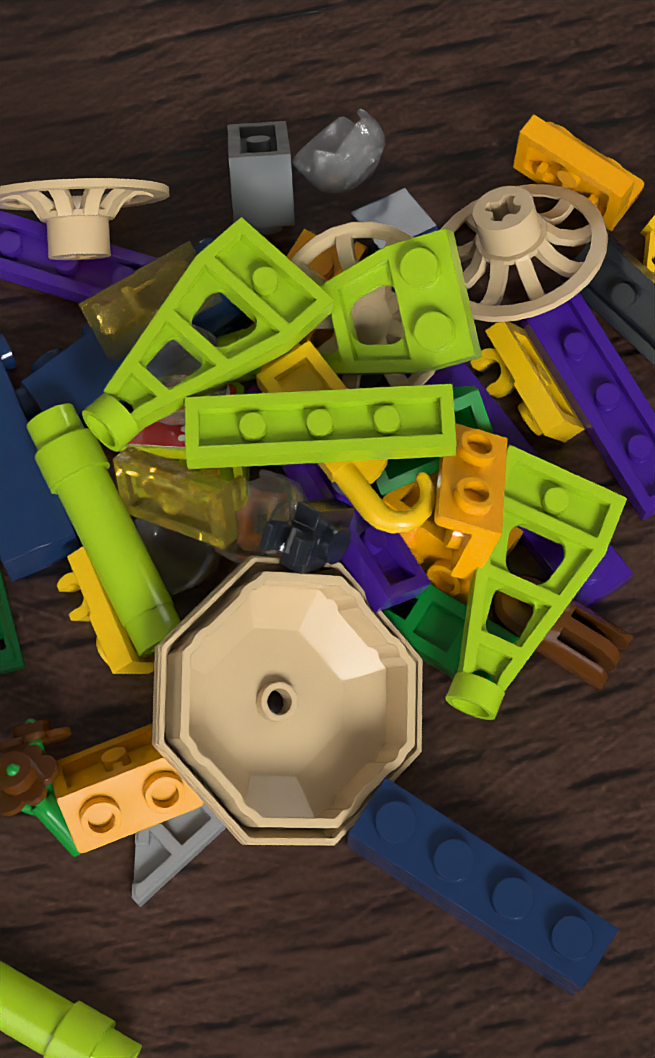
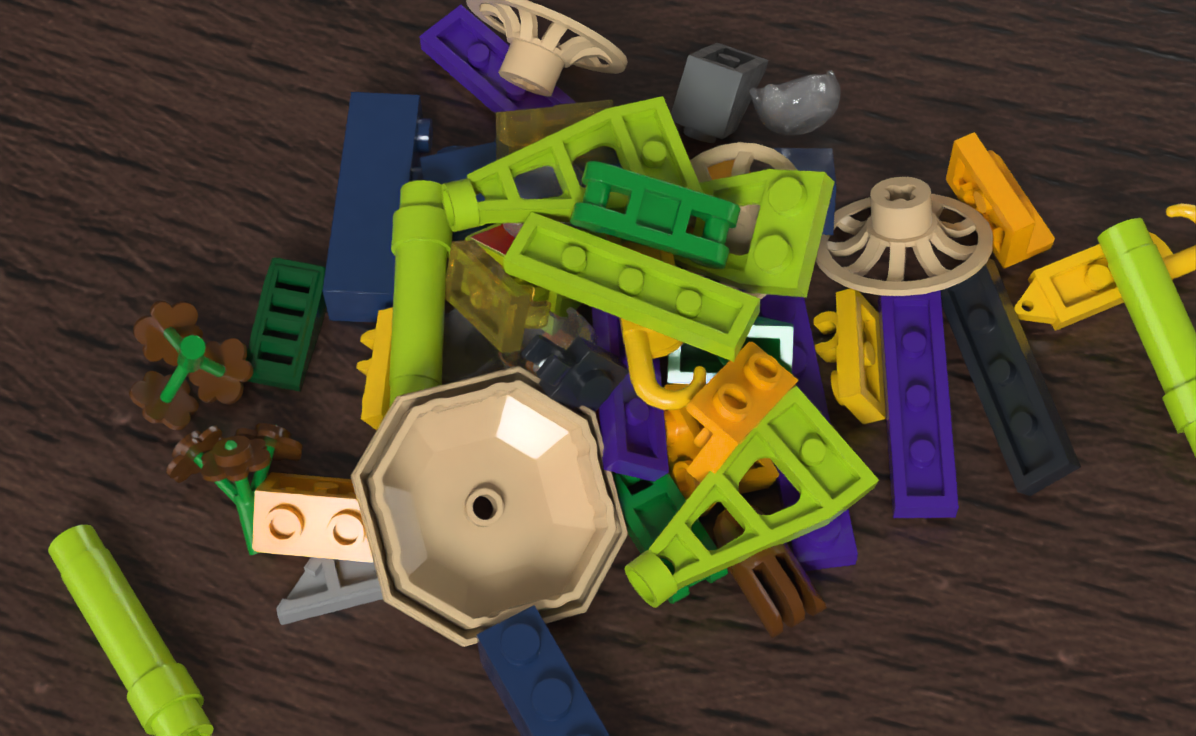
camera: 30 degrees right, 10 degrees down
(305, 344) = (655, 214): none -> green plate

